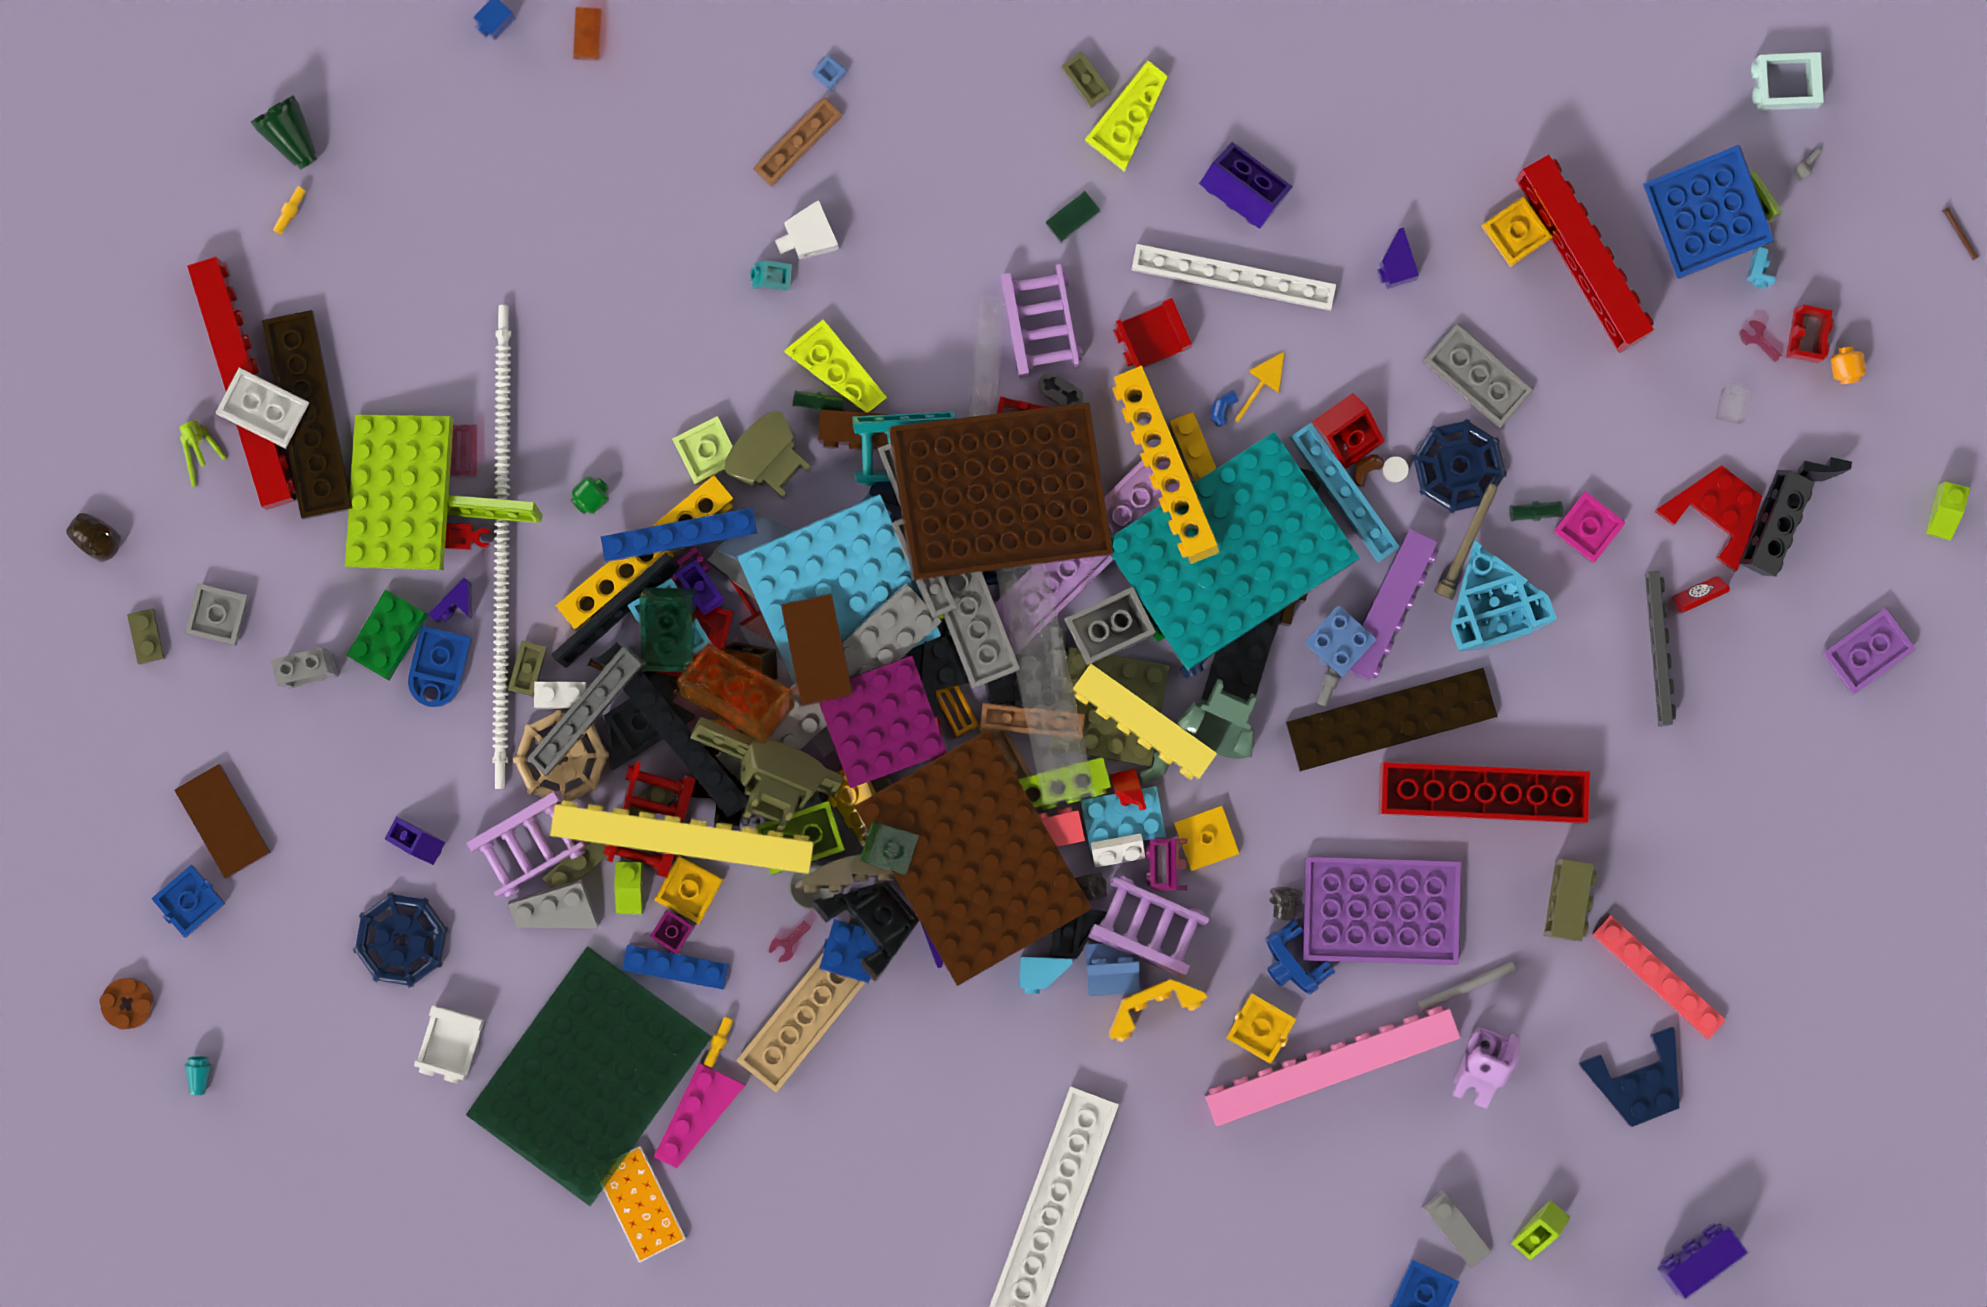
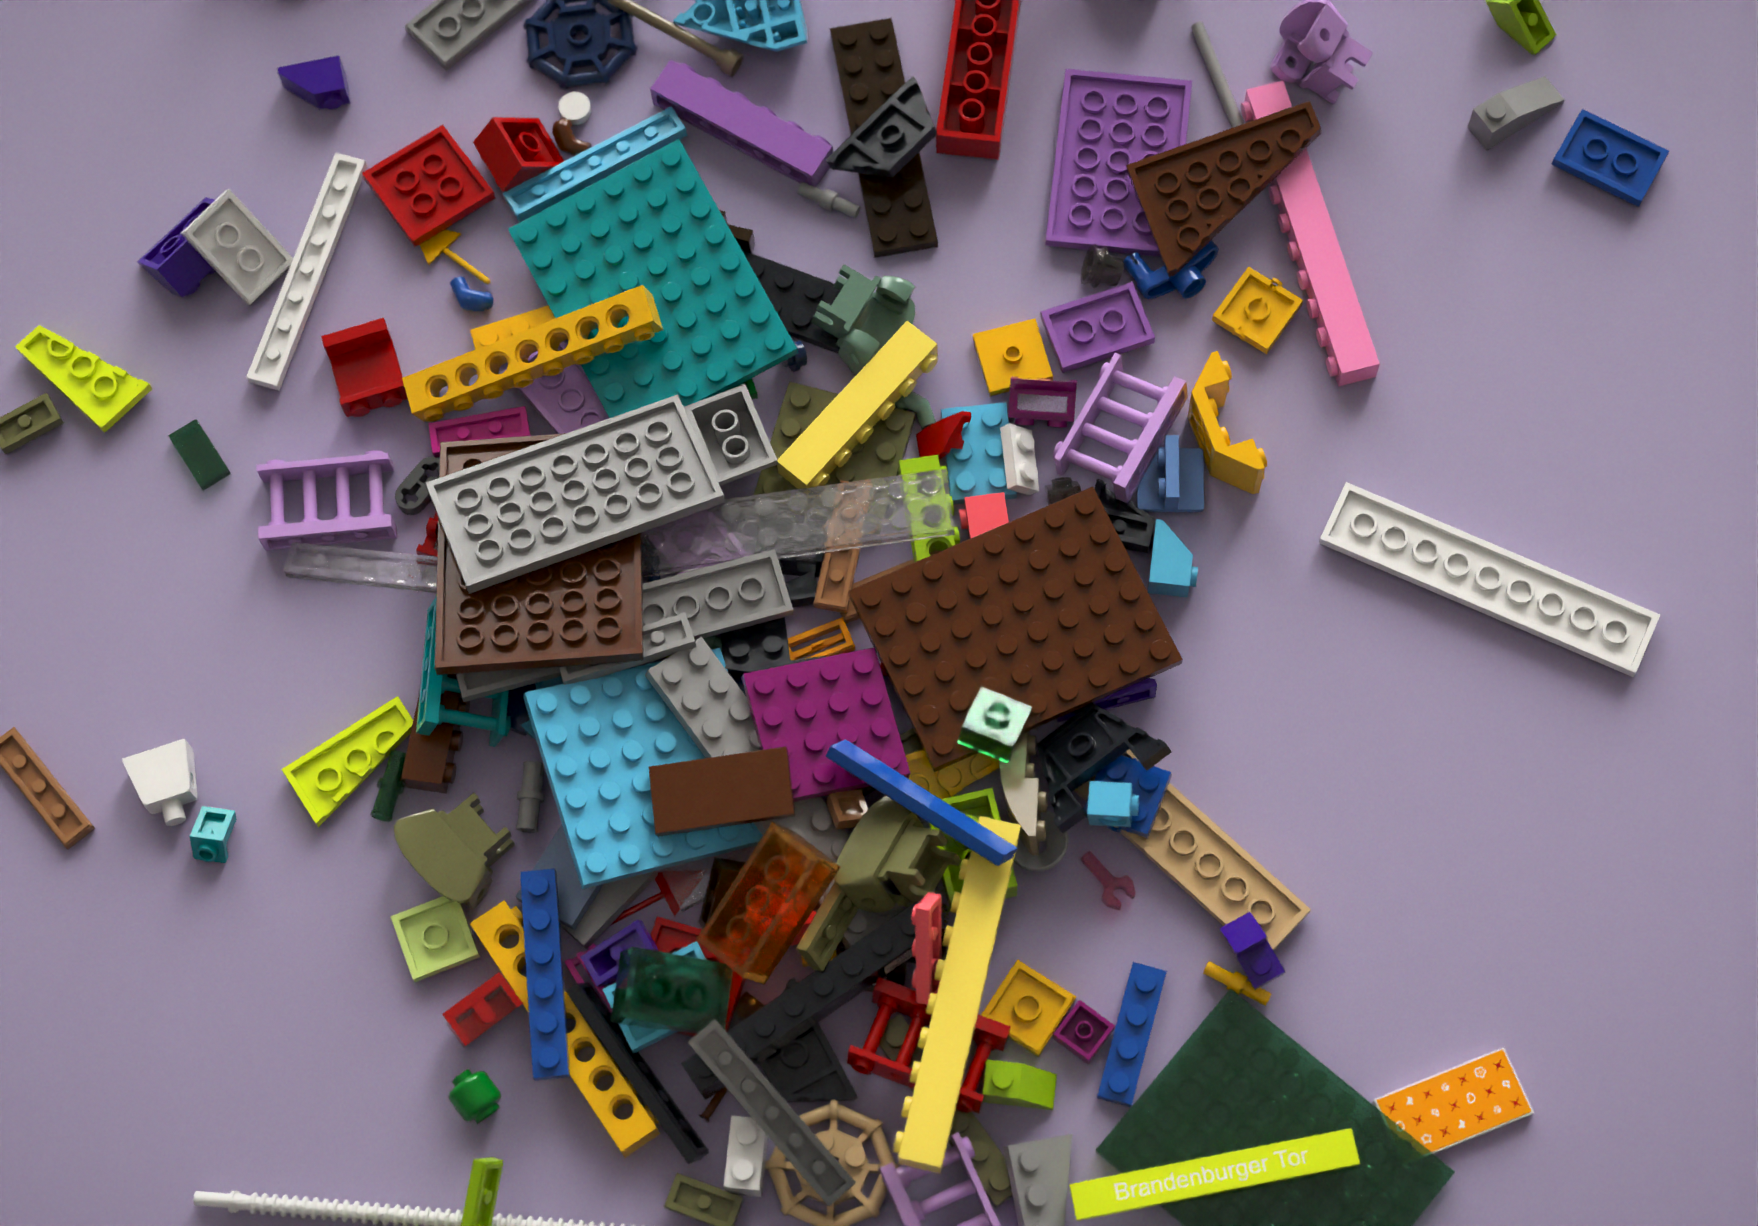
camera: 80 degrees left, 15 degrees down
(572, 1032) = (1214, 1174): none -> neon yellow tile
(651, 491) = (481, 1009): none -> red window
(700, 1107) = (1330, 1019): dark pink wing -> none
(712, 812) = (927, 945): none -> coral plate
(740, 1050) = (1252, 950): none -> dark purple slope
(817, 506) = (530, 796): none -> light grey pin
(817, 798) = (921, 802): none -> blue tile
(819, 744) = (846, 808): none -> medium nougat plate
(835, 940) = (1111, 804): none -> medium azure brick
(1046, 512) = (574, 493): none -> light grey plate
(1108, 431) = (489, 425): none -> dark pink plate
(1236, 903) = (1097, 327): none -> medium lavender plate
(1242, 221) = (238, 246): none -> white tile
(1314, 362) = (428, 185): none -> red plate
(1340, 641) = (781, 176): medium blue bracket -> none
(1362, 983) = (1208, 182): none -> reddish brown wing
(1381, 725) = (888, 136): none -> black wing

